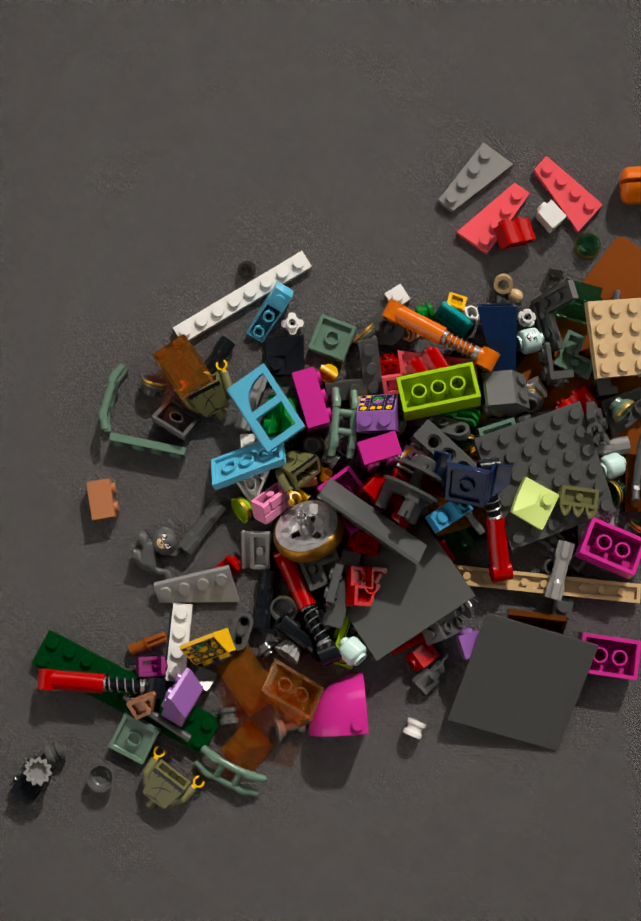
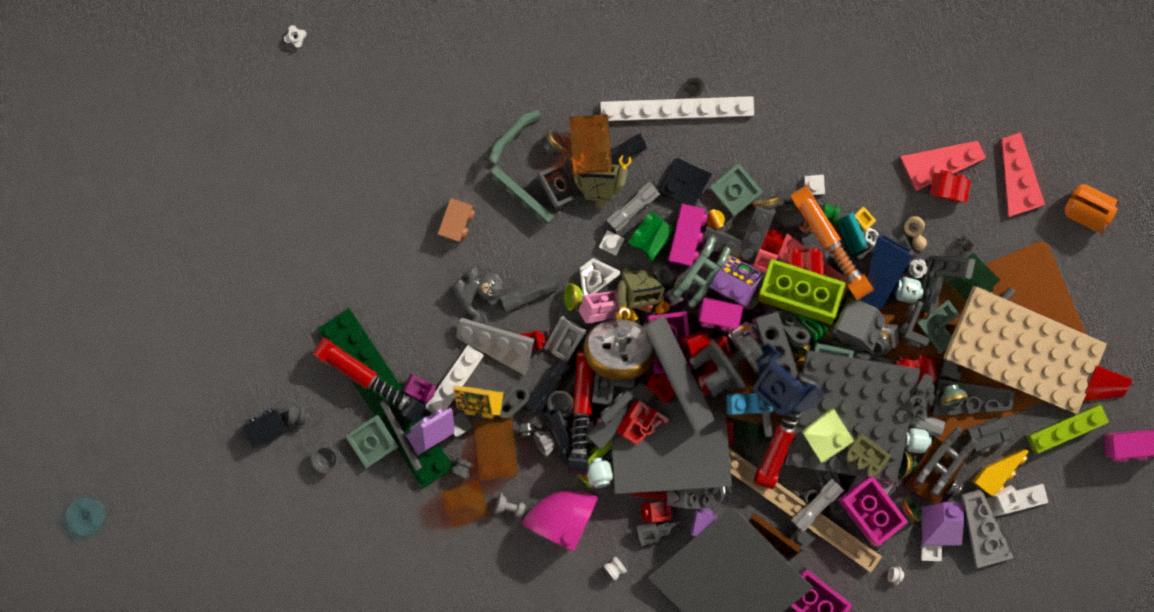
camera: 30 degrees right, 5 degrees up
(37, 771) = (276, 424): light grey piece -> none
(142, 705) = (394, 418): nougat slope -> none
(147, 643) = (427, 367): dark orange axle -> none
(165, 785) = (376, 495): olive torso -> none
(239, 773) = (435, 506): sand green piece -> none
(240, 394) = (627, 197): medium azure window -> none
(245, 464) = (601, 259): medium azure plate -> none
(270, 311) = (694, 135): medium azure slope -> none
(291, 693) = (527, 480): clear orange slope -> none
(292, 328) = (709, 152): white plate -> none
(475, 176) = (947, 114): light grey wing -> none
(550, 215) = (991, 188): white brick -> none
(587, 245) = (1010, 233): clear green piece -> none

